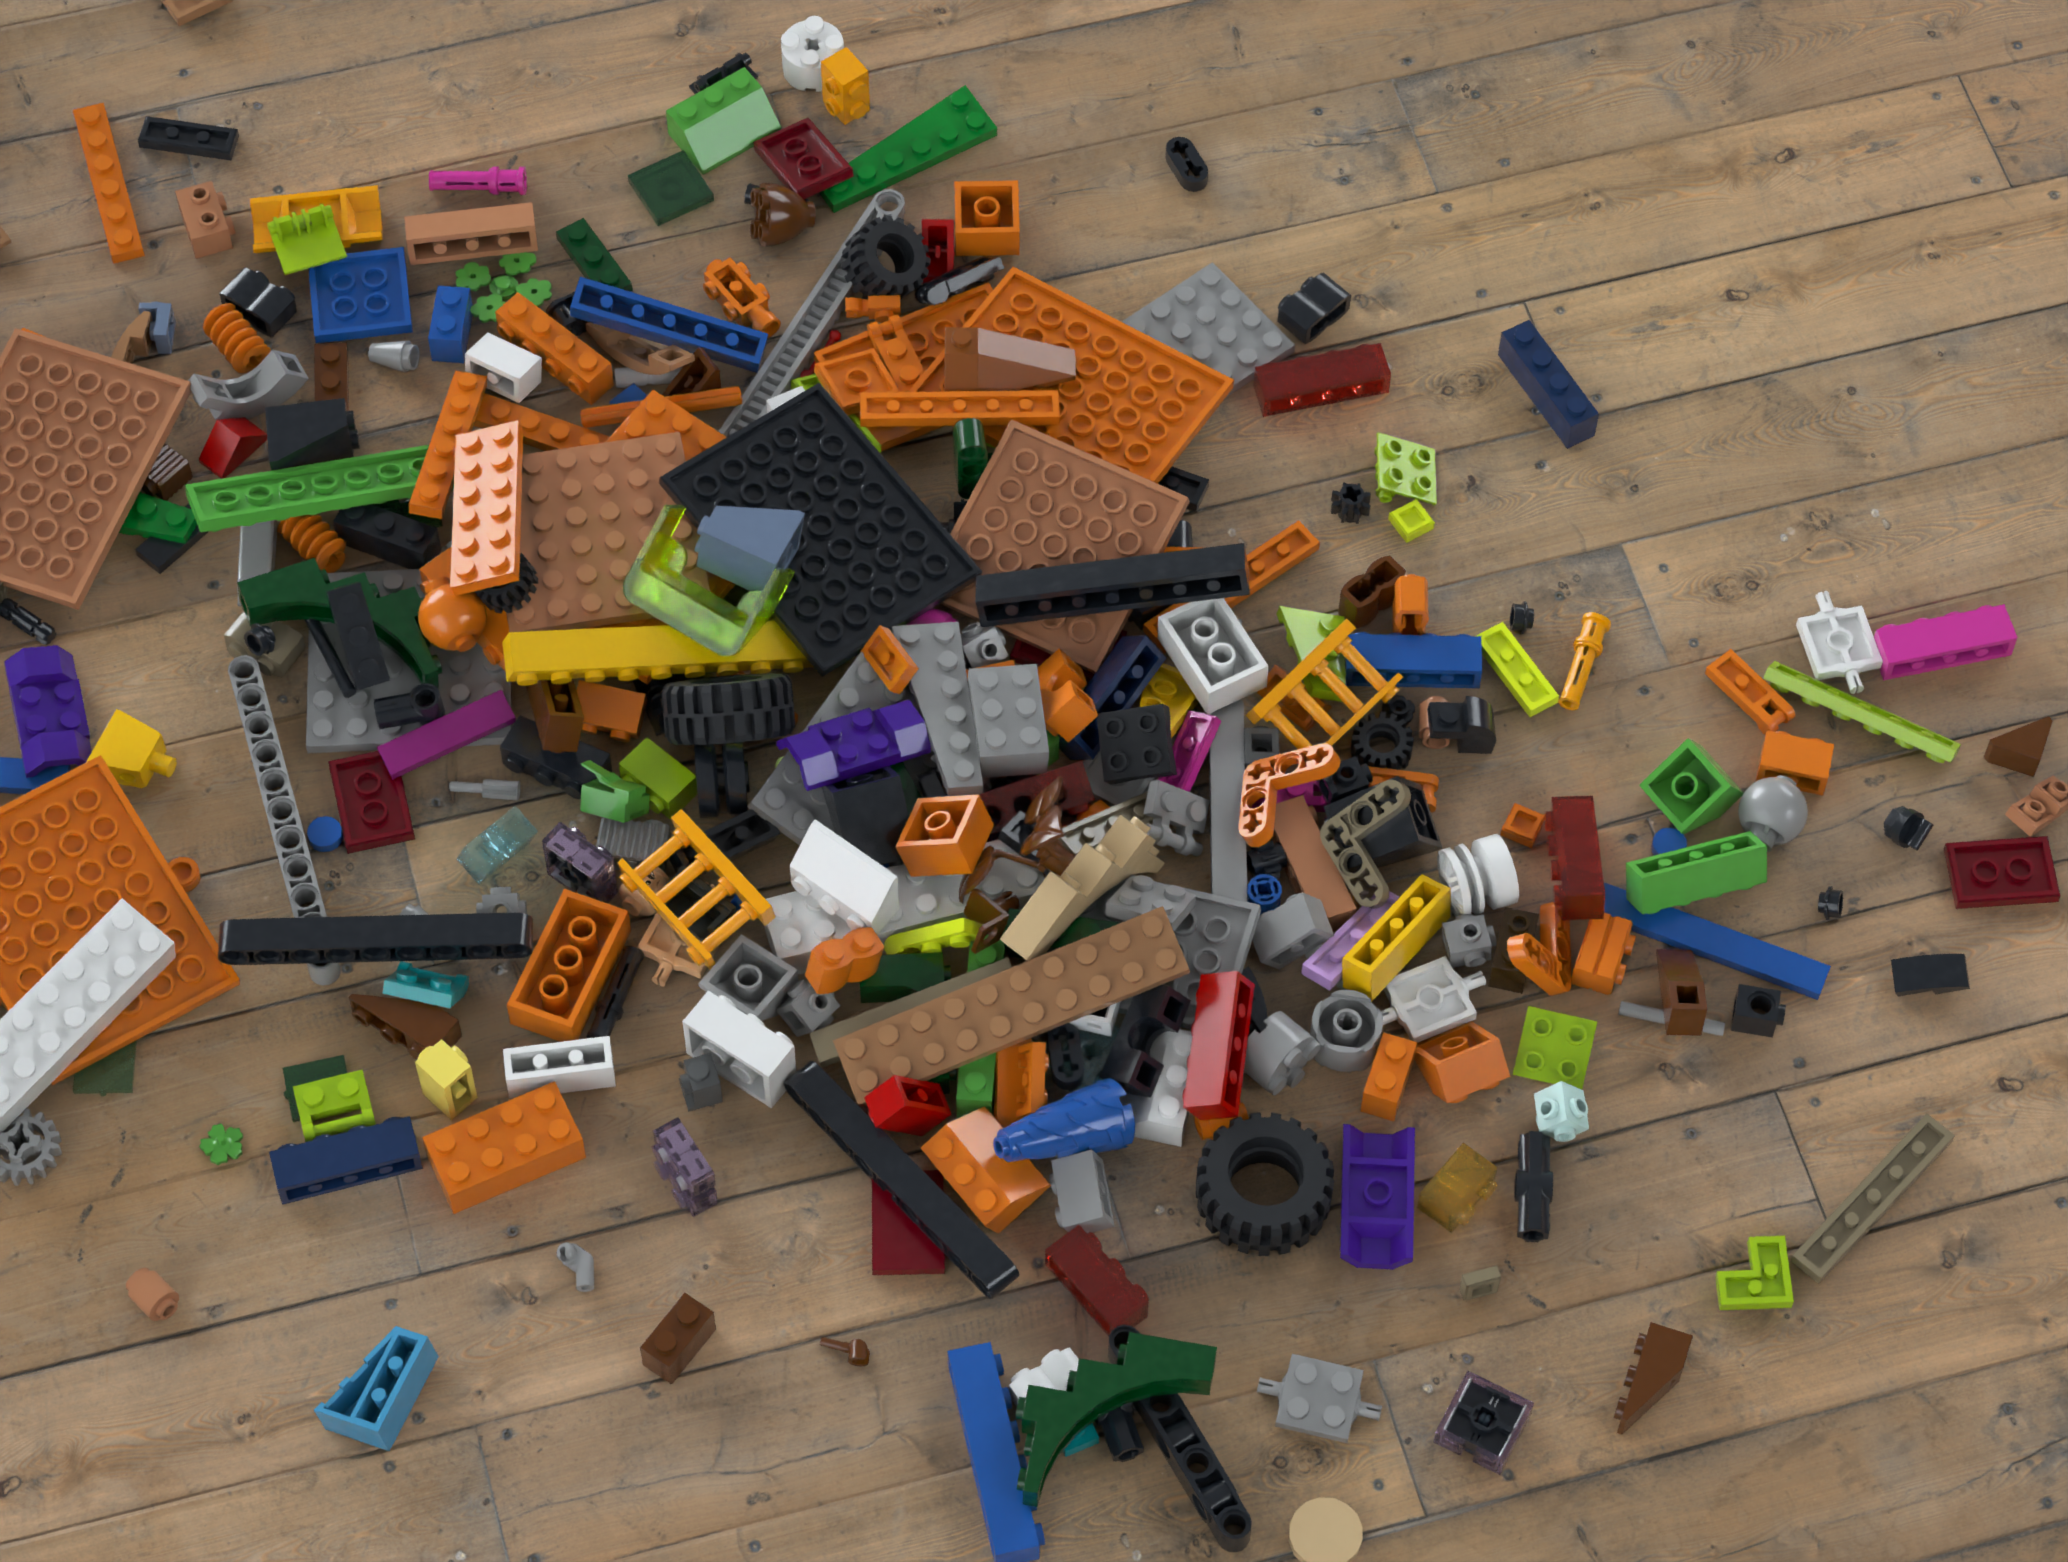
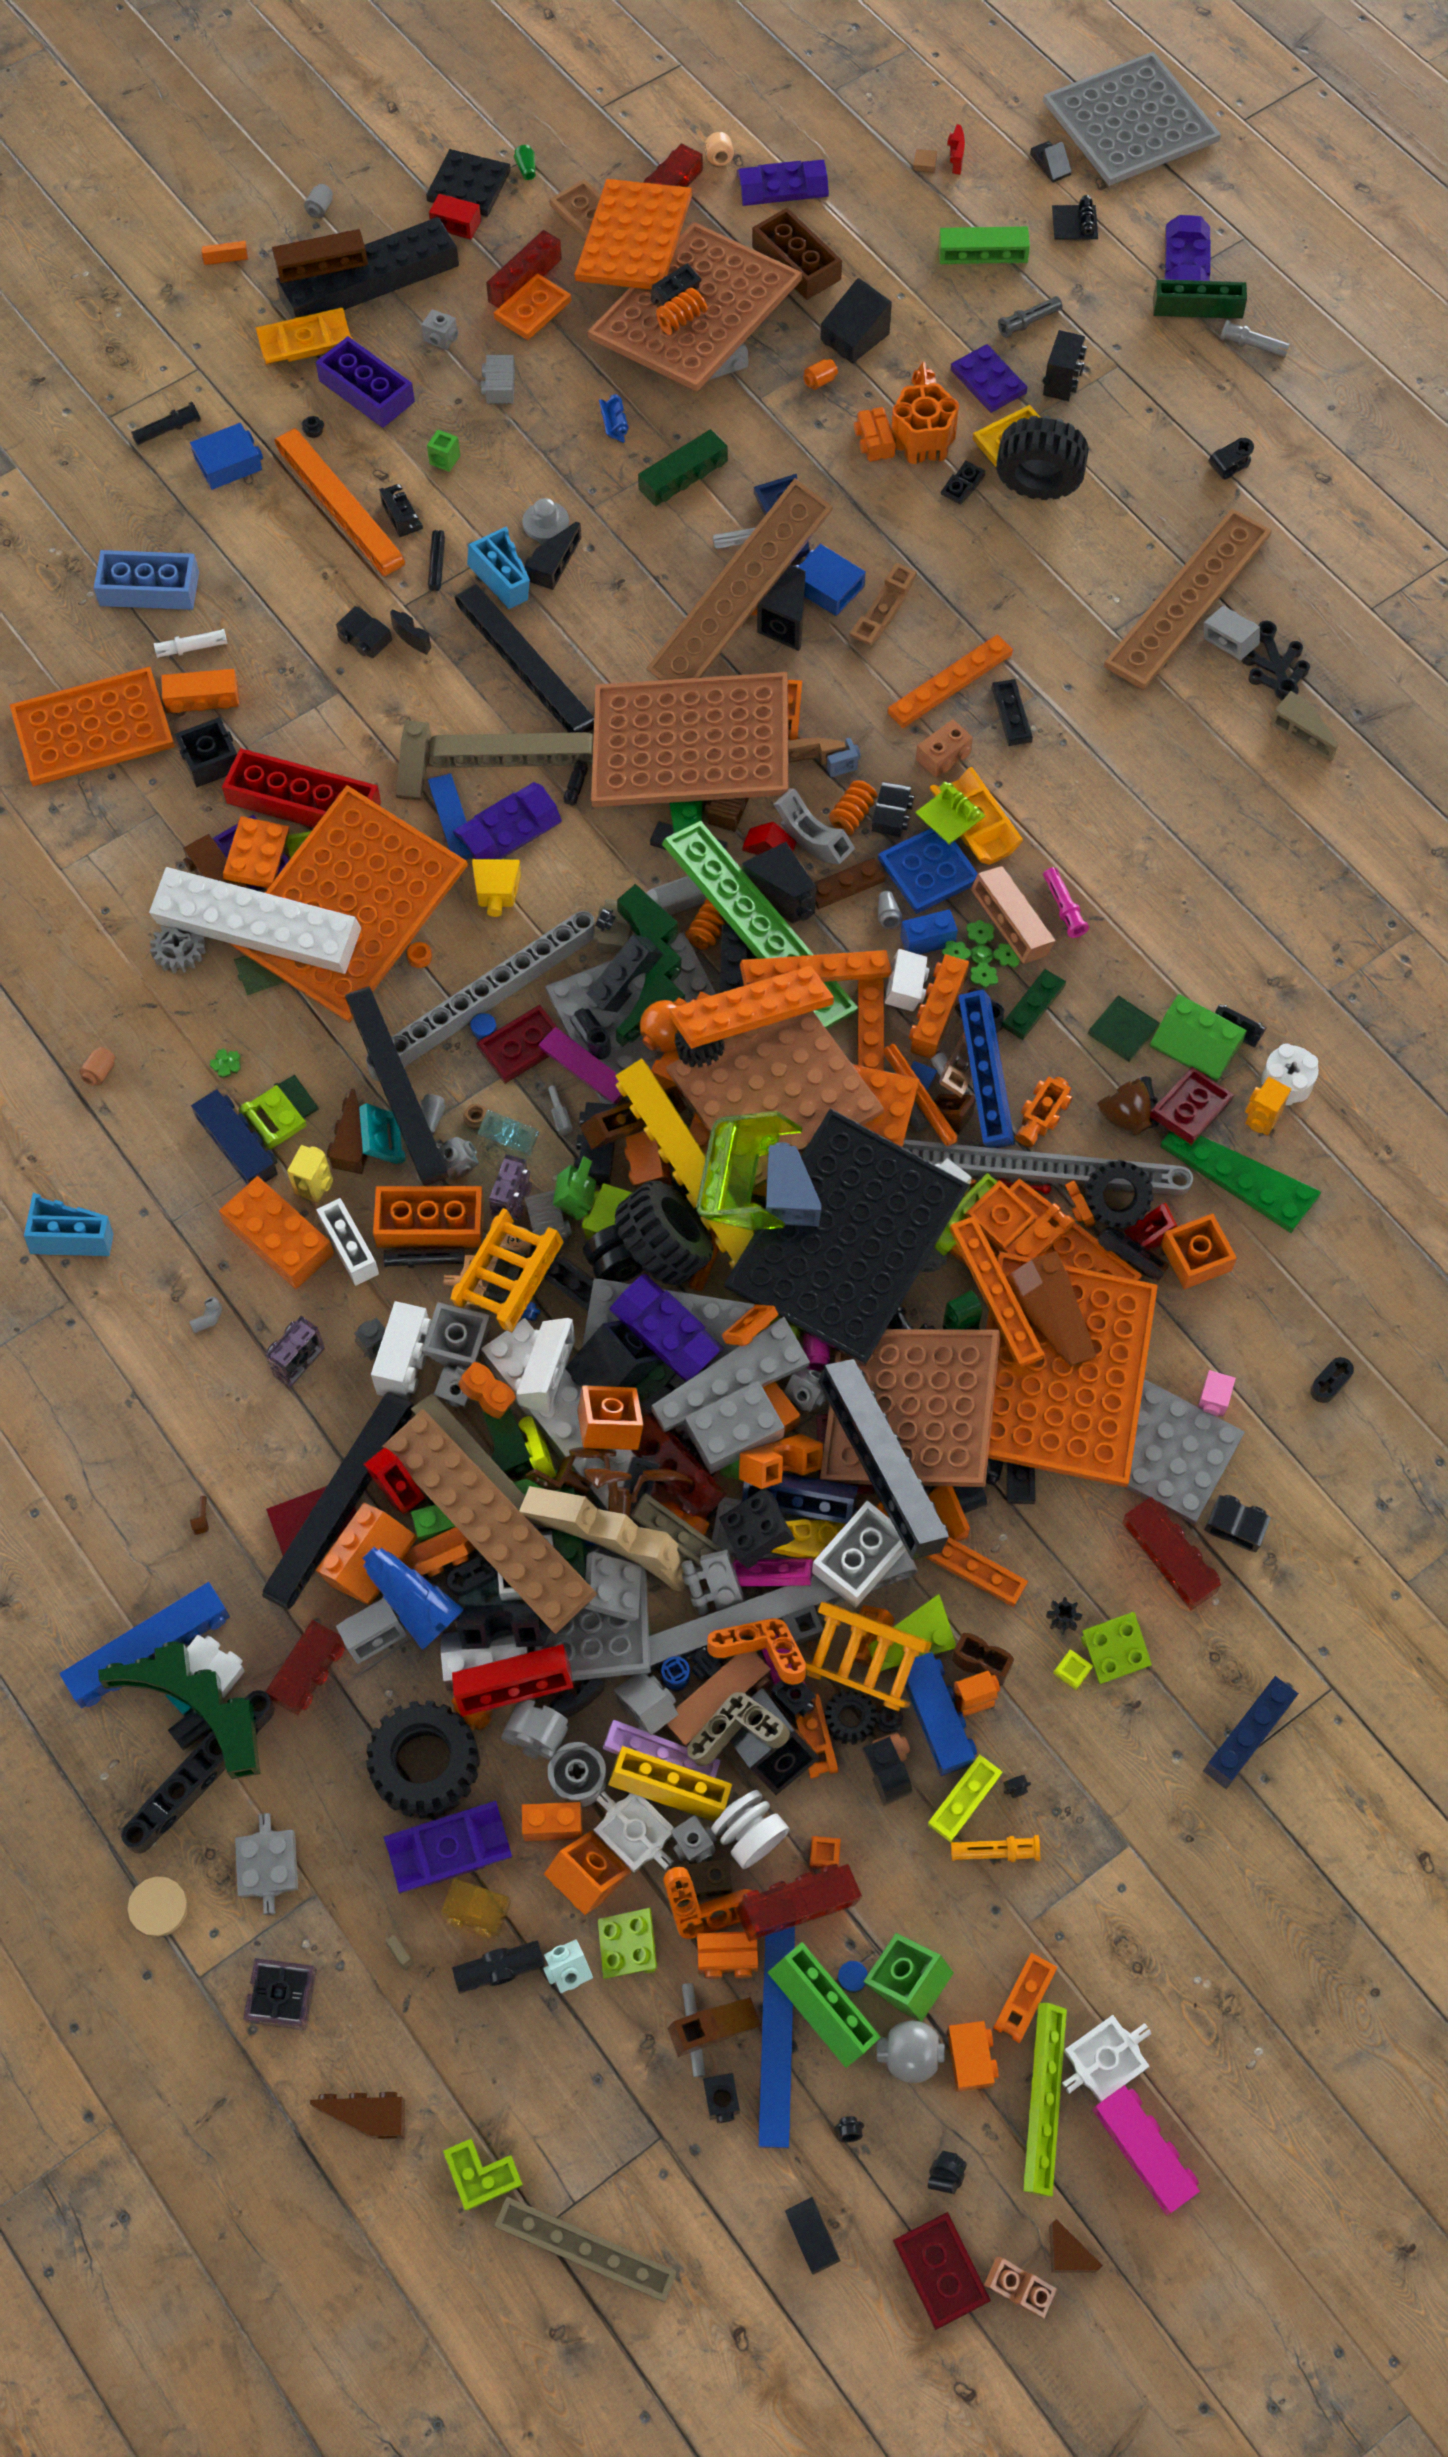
camera: 70 degrees right, 5 degrees up
(447, 872) = (470, 1112): none -> medium nougat plate
(678, 1338) = (167, 1400): reddish brown brick -> none
(1158, 269) = (1216, 1393): none -> bright pink brick

